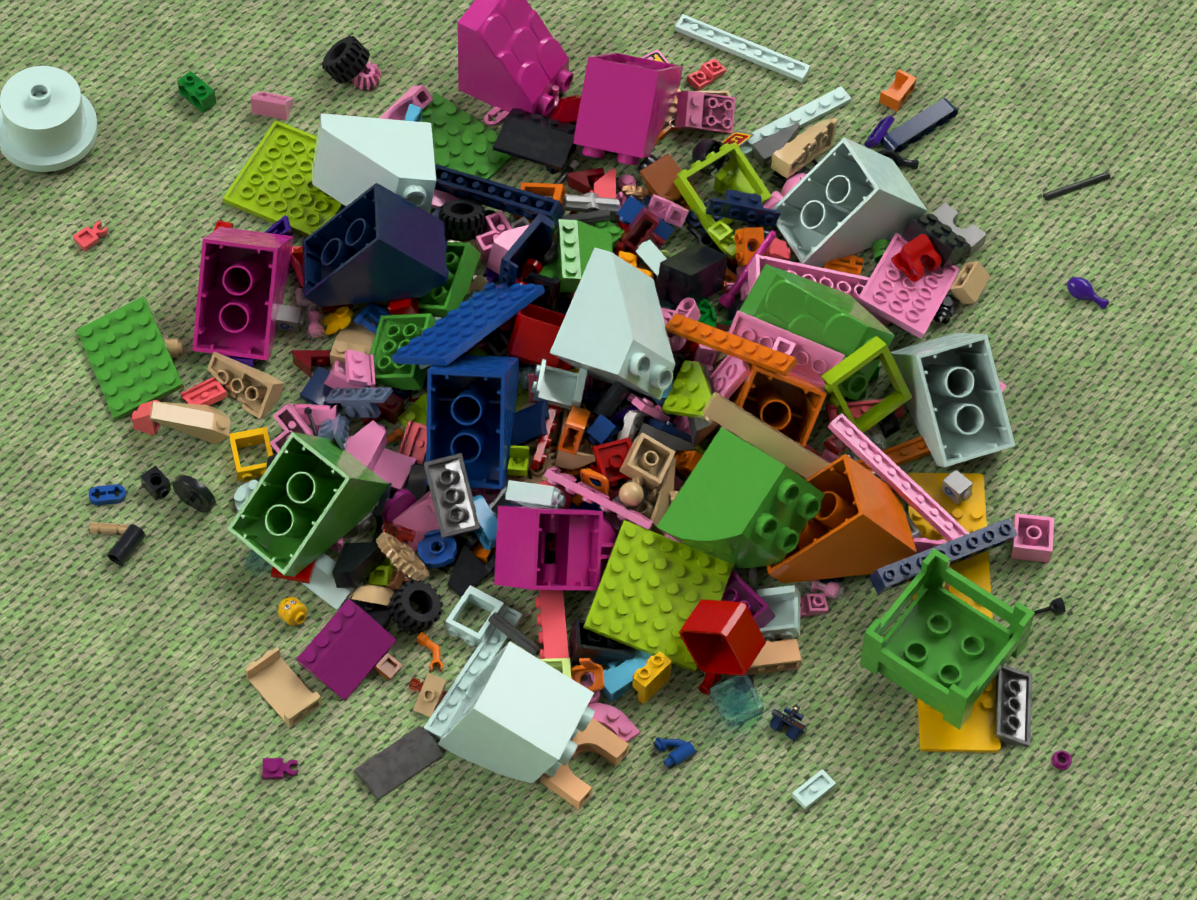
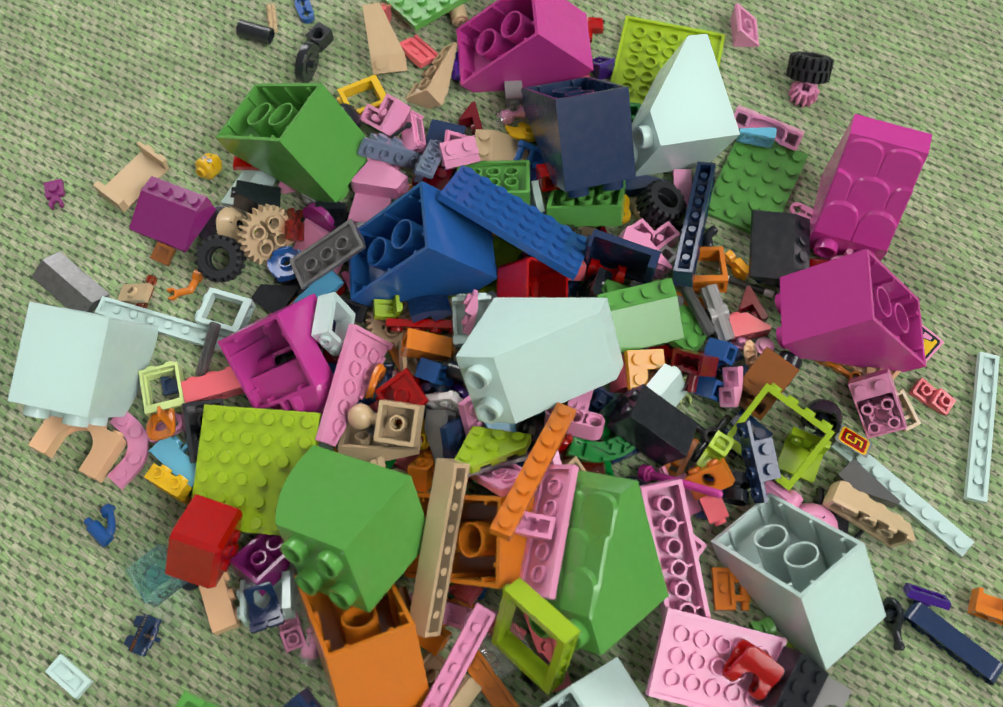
camera: 80 degrees right, 10 degrees up
(544, 176) = (738, 266): none -> light orange plate
(554, 373) = (471, 308): none -> bright pink slope
(797, 607) = (263, 617): none -> dark blue piece

